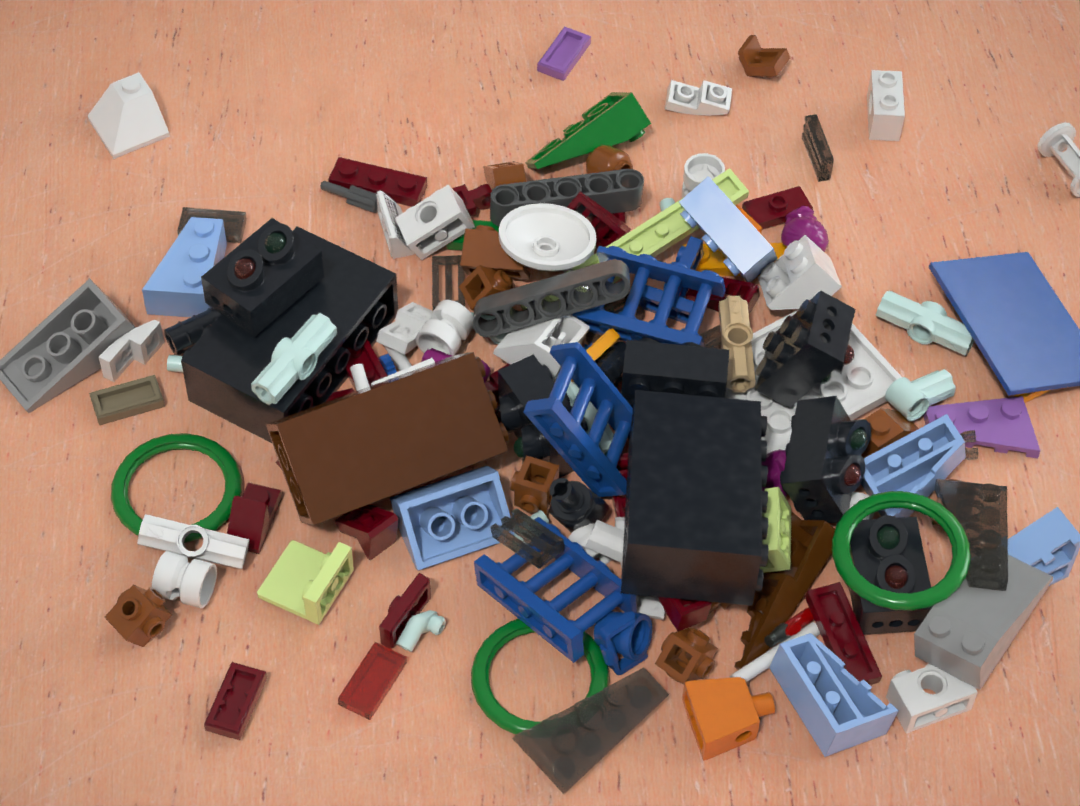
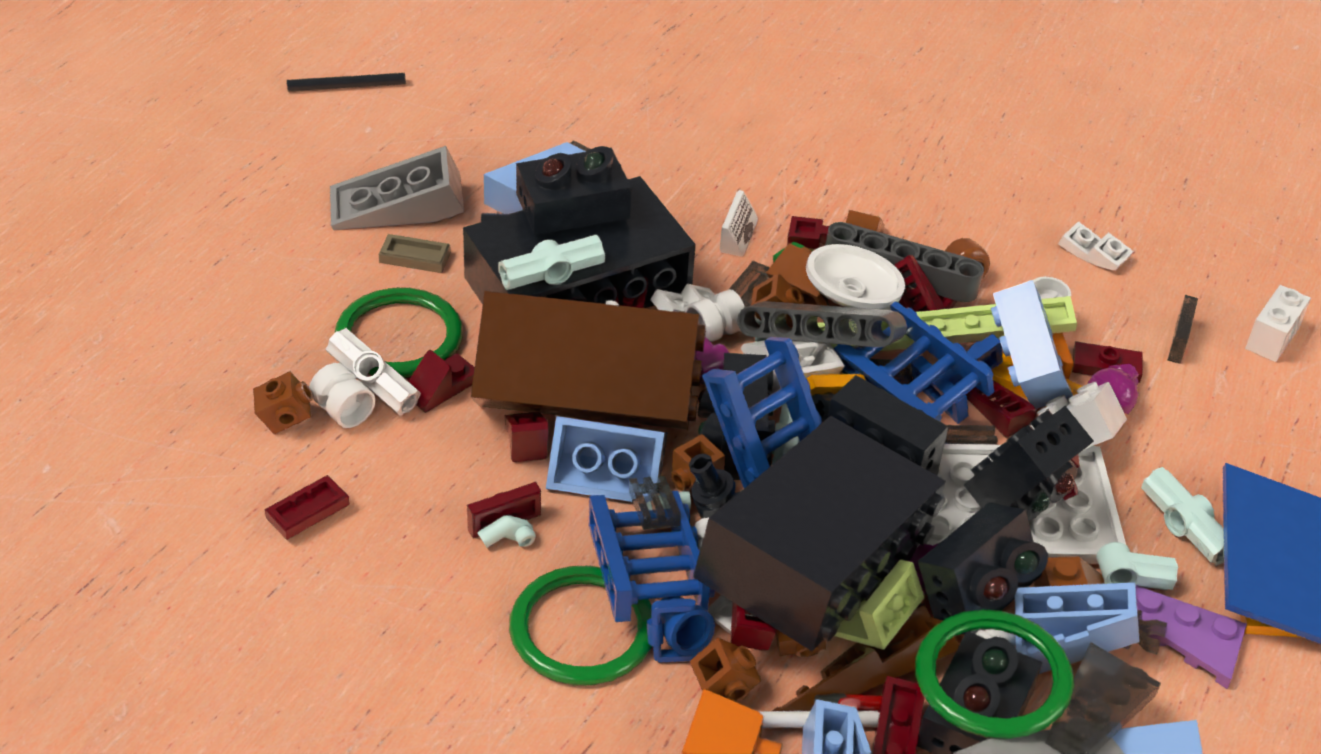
camera: 30 degrees right, 10 degrees down
(128, 116) = (583, 62): white slope -> none
(136, 345) = (444, 215): white slope -> none
(307, 580) = (445, 447): yellowish green bracket -> none
(355, 195) = (723, 191): dark grey axle -> none
(372, 680) = (434, 551): clear red tile -> none
(398, 185) = (765, 199): dark red plate -> none
(434, 222) = (769, 231): white brick -> none
(564, 53) = (995, 166): medium lavender tile -> none
(582, 735) = (578, 688): clear smoke wing -> none
(608, 122) = (990, 229): green wedge -> none
(737, 338) = (973, 441): tan piece -> none
(762, 61) = (1176, 241): dark orange bracket -> none

